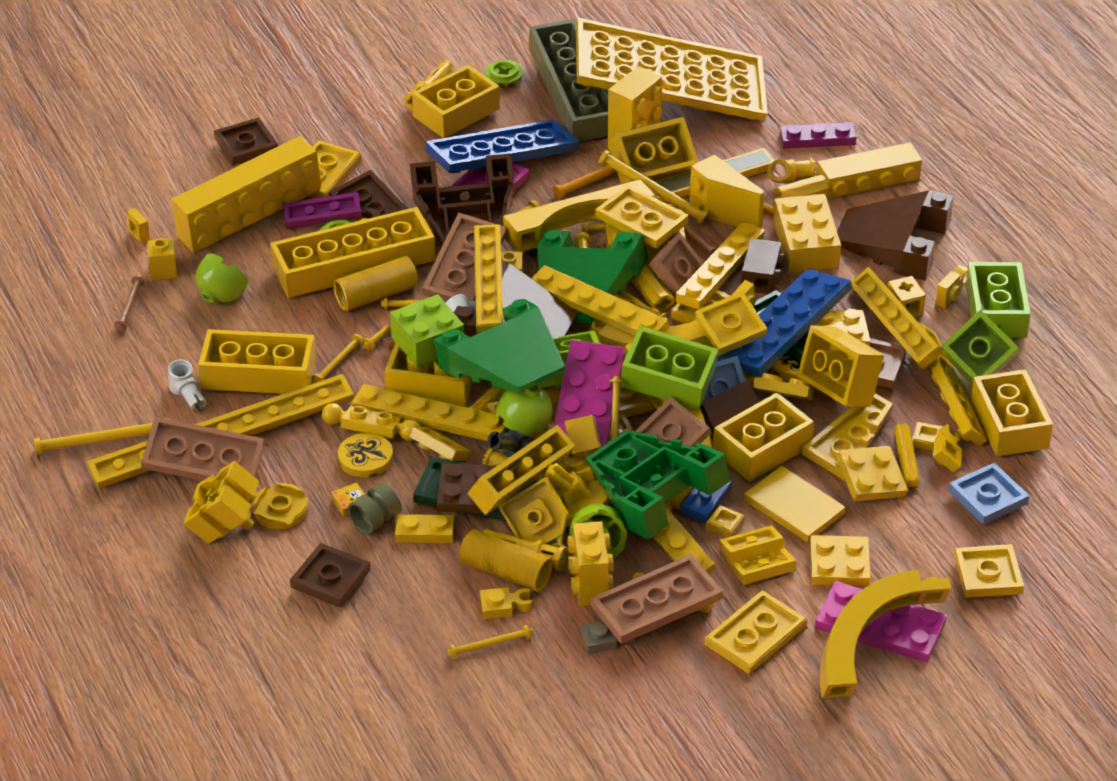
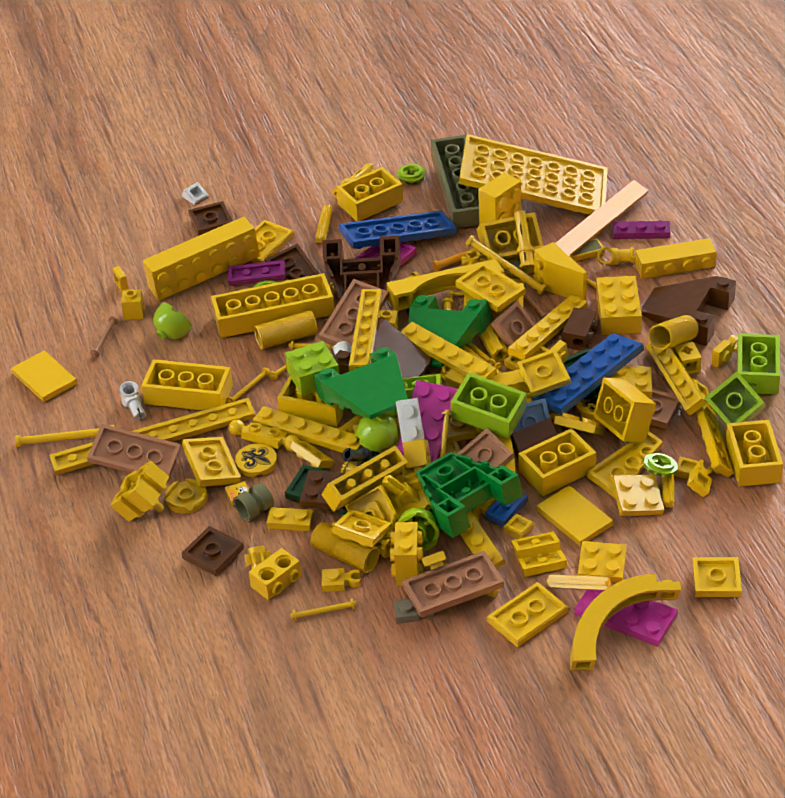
camera: 10 degrees right, 0 degrees up
(56, 358) = (44, 376): none -> yellow tile
(217, 109) = (194, 193): none -> white slope
(307, 459) = (211, 461): none -> yellow plate
(393, 580) = (256, 556): none -> yellow gear
(399, 142) = (323, 224): none -> yellow axle
(419, 599) = (275, 574): none -> yellow brick
(527, 534) = (361, 528): none -> yellow plate
(569, 391) = (409, 420): none -> white plate
(606, 179) = (472, 257): none -> yellow gear
(630, 569) = (434, 560): none -> yellow plate
(675, 164) = (525, 249): none -> yellow pin
(767, 120) = (601, 218): none -> tile
(811, 186) = (626, 269): yellow axle -> none
(816, 587) = (578, 582): none -> yellow axle
(886, 264) = (673, 332): none -> yellow piece
(896, 433) = (660, 464): none -> lime gear
(988, 493) = (727, 515): medium blue plate -> none

